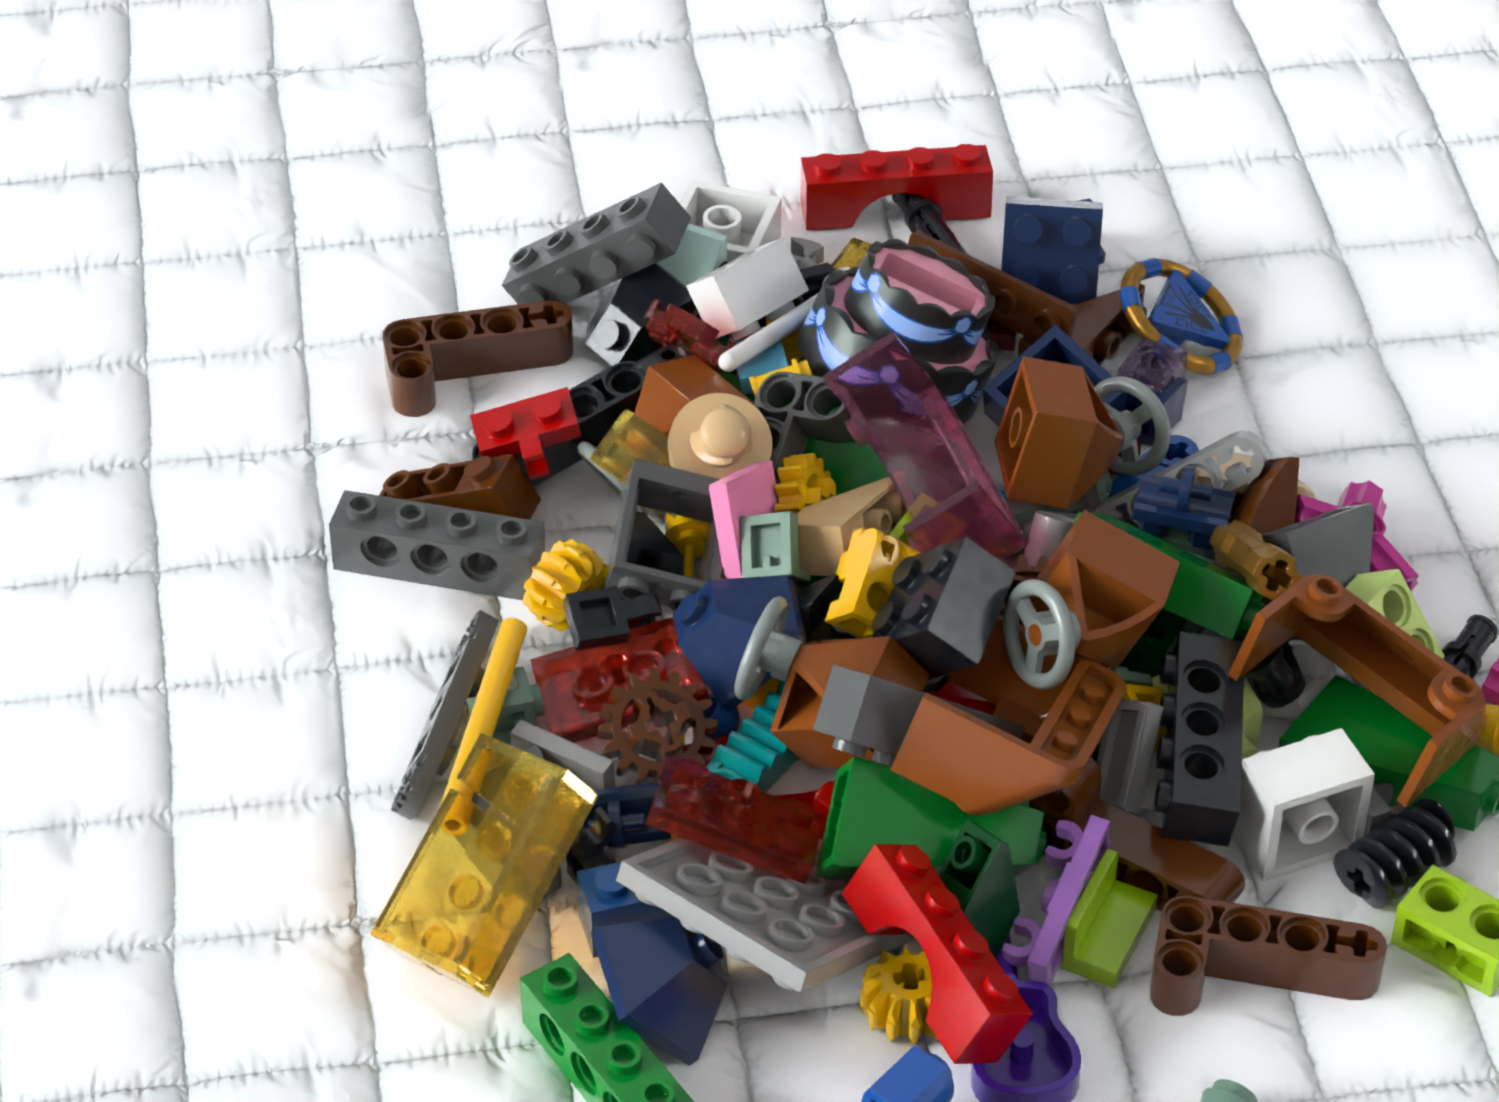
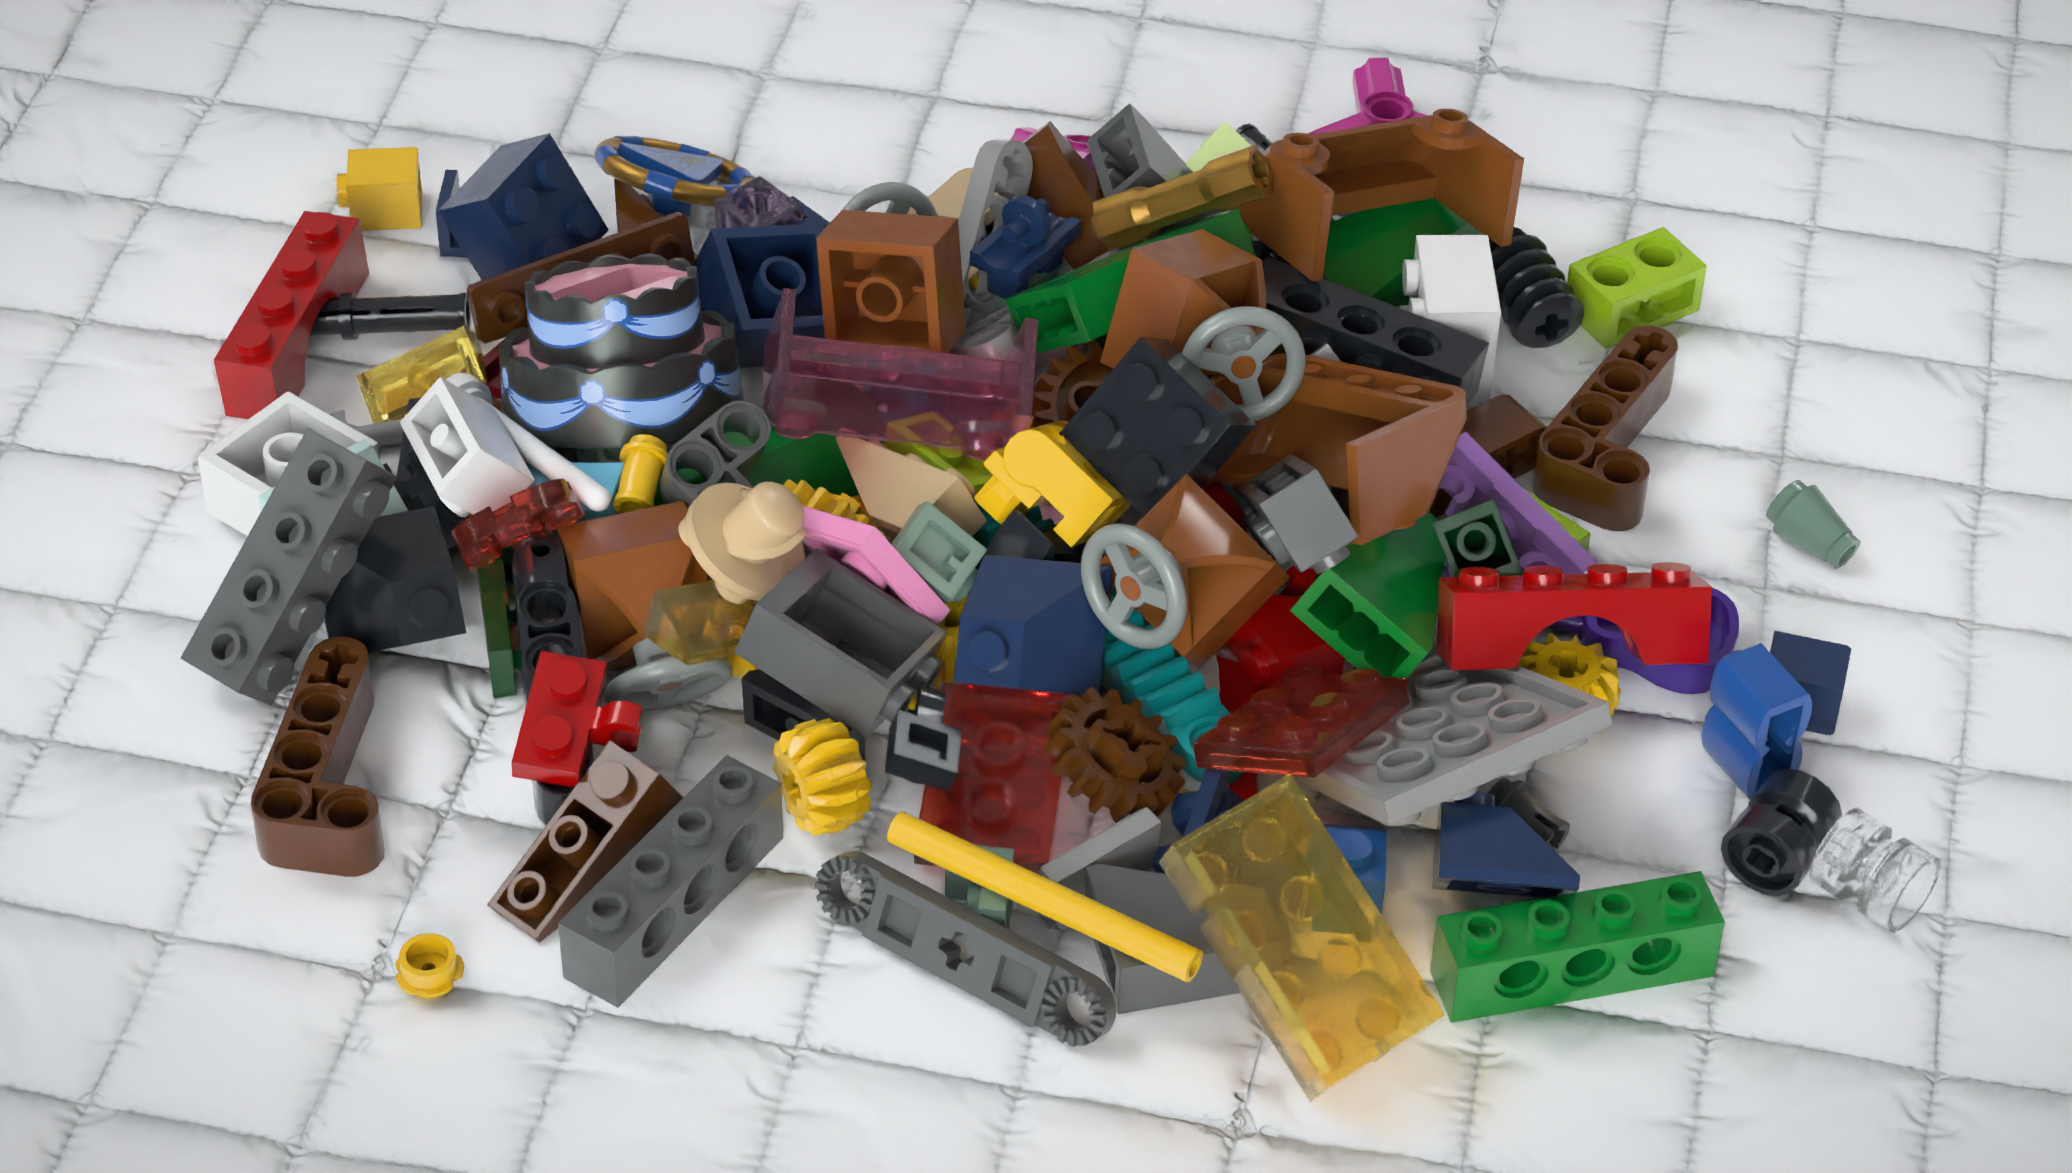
camera: 70 degrees left, 0 degrees up
(315, 461) = (428, 966): none -> yellow plate
(755, 998) = (1537, 816): none -> dark grey pin
(1068, 177) = (382, 188): none -> yellow brick

